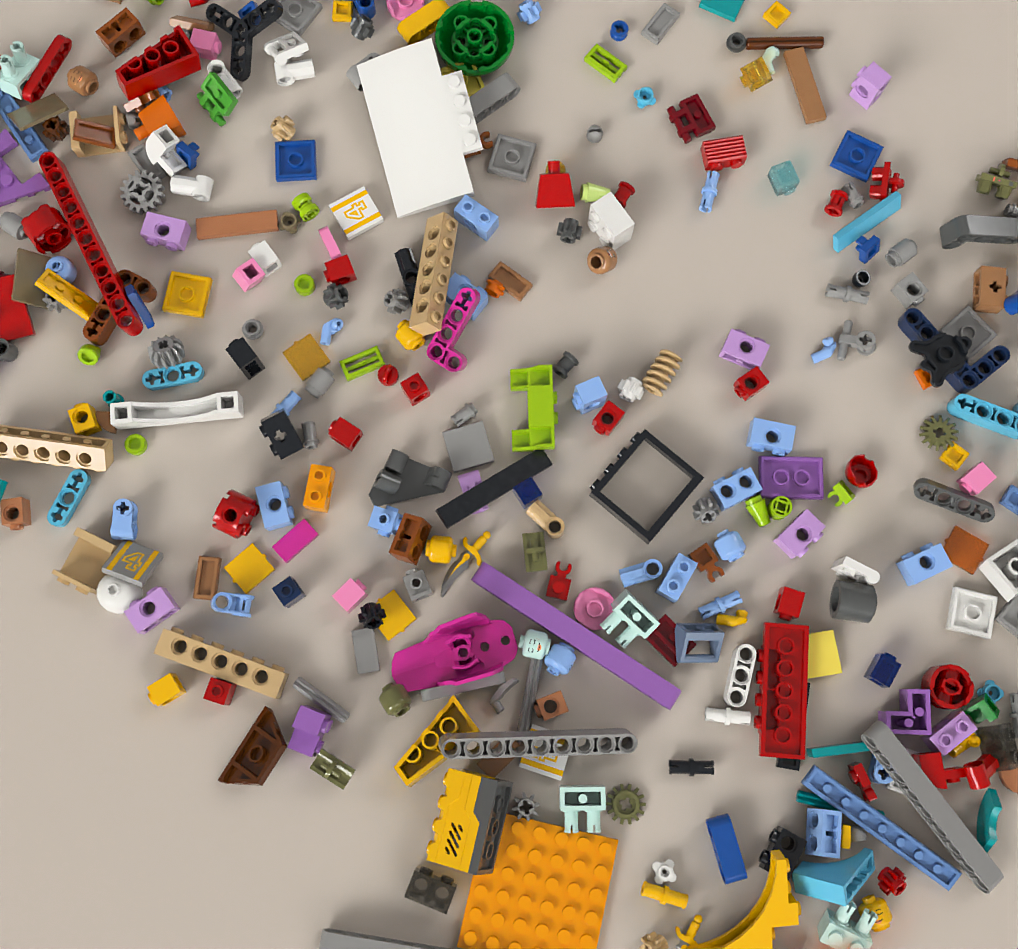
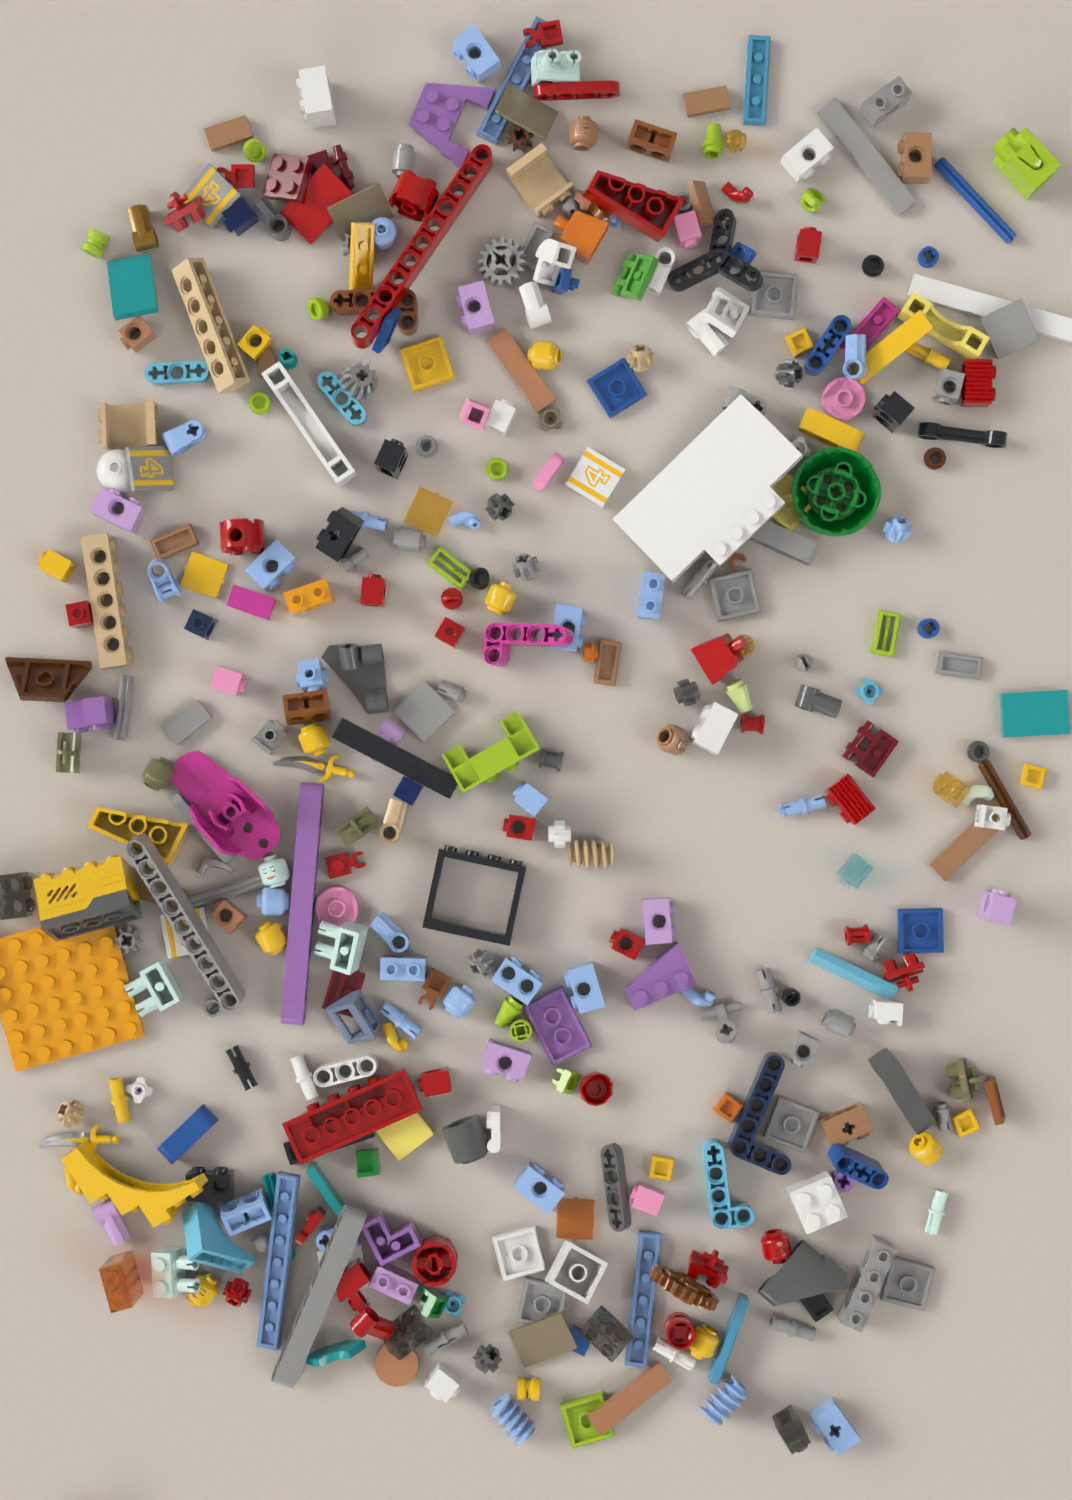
camera: 60 degrees right, 10 degrees up
(94, 133) = (533, 180): dark orange tile -> none
(236, 198) = (545, 355): none -> yellow head
(304, 205) = (573, 426): lime wheel -> none
(339, 271) = (526, 496): red brick -> none
(371, 615) = (219, 711): black gear -> none
(384, 343) = (479, 578): none -> black plate
(397, 615) = (232, 727): yellow piece -> none
(408, 268) = (566, 558): black piece -> none
(433, 274) = (568, 588): tan brick -> none
(483, 175) = (699, 578): none -> light grey pin
(590, 677) = (271, 937): none -> yellow head
(628, 140) = (813, 700): none -> dark grey piece
(628, 763) = (213, 1011): none -> light grey hinge
(634, 800) = (173, 1032): olive gear -> none
(794, 55) = (984, 817): none -> white brick
(795, 371) = (661, 979): none -> medium lavender wedge
(831, 700) = (368, 1162): none -> green panel
(845, 836) = (253, 1232): yellow tile -> none
(867, 248) = (825, 988): blue tile -> none
(883, 669) = (420, 1196): clear blue brick -> none
(911, 211) = (886, 1011): none -> white brick
(941, 355) = (748, 1110): black tile -> none
(943, 440) = (669, 1150): olive gear -> none
(971, 741) = (398, 1306): yellow arm -> none

